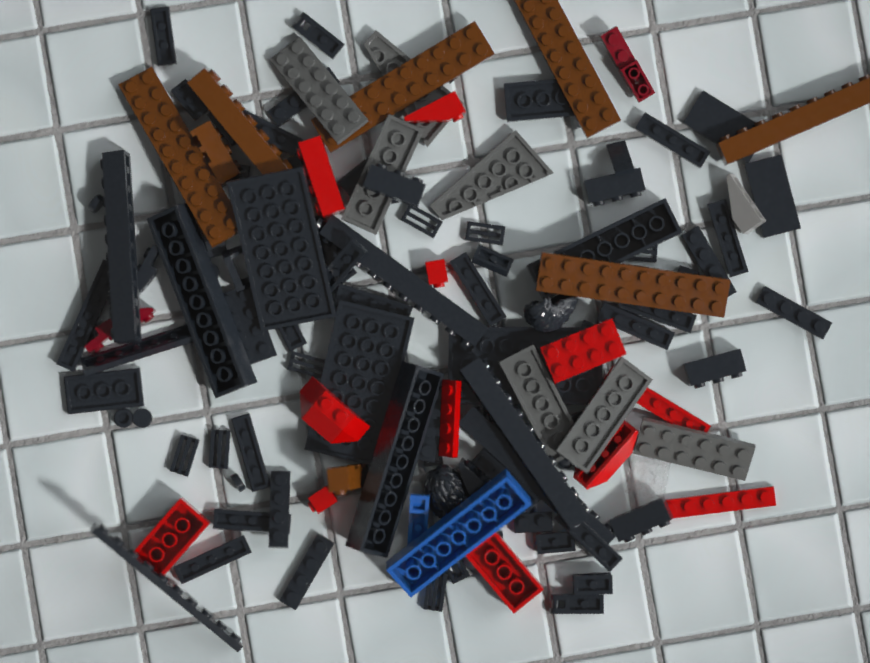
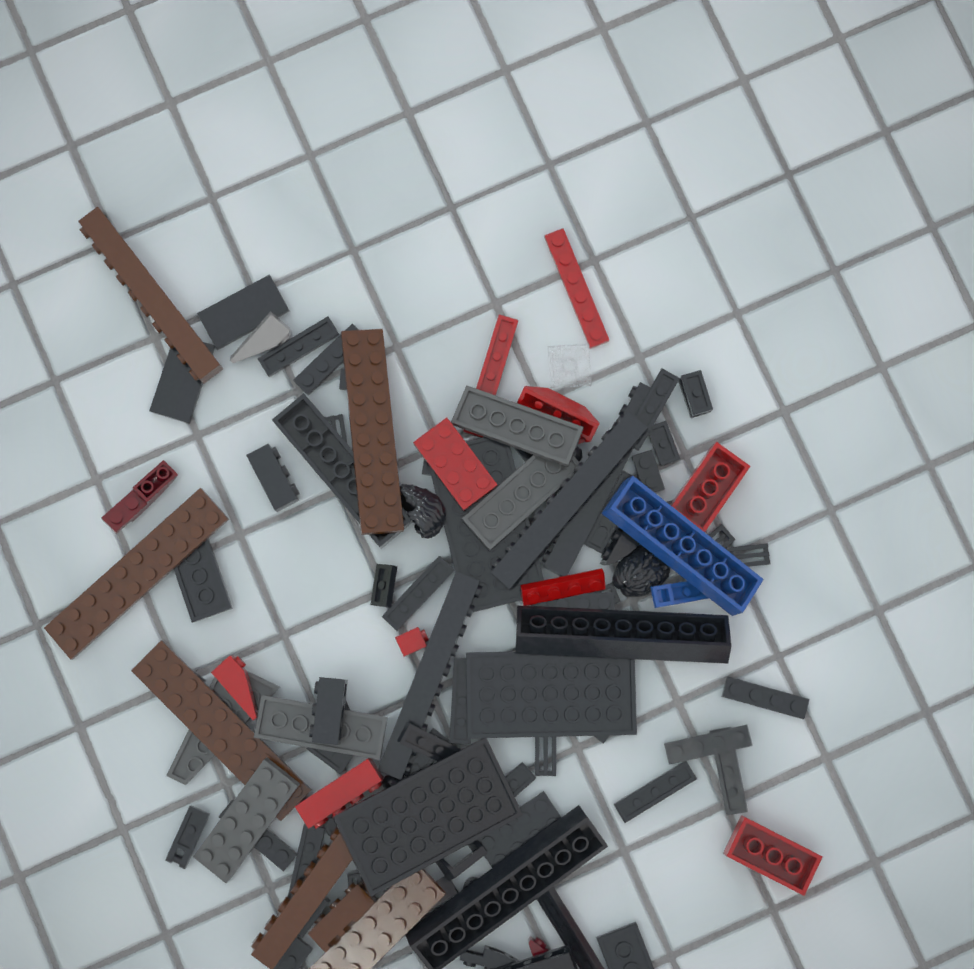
camera: 105 degrees left, 5 degrees down
(123, 418) = (655, 941): black tile -> none
(142, 418) = (649, 920): black tile -> none
(161, 582) = (823, 852): black plate -> none
(177, 453) = (695, 864): black tile -> none
(212, 559) = (780, 803): black plate -> none
(227, 449) = (678, 823): black tile -> none
(238, 482) = (692, 795): black tile -> none
(322, 500) = (685, 701): red brick -> none
(329, 414) = (592, 717): red wedge -> none
(346, 478) = (656, 681): reddish brown wedge -> none
(435, 228) = (359, 676): black tile -> none
(483, 225) = (356, 596): black tile -> none
(498, 173) = (288, 602): dark grey wing -> none
(577, 604) = (721, 405): black plate -> none
(620, 158) = (241, 478): black tile -> none
(636, 326) = (414, 416): black plate -> none
(641, 519) = (615, 360): black brick -> none
(672, 140) = (209, 429): black plate -> none
(676, 319) = (397, 383): black plate -> none
(694, 448) = (527, 325): dark grey plate -> none
(715, 368) = (438, 325): black brick -> none
(793, 312) = (359, 260): black plate -> none

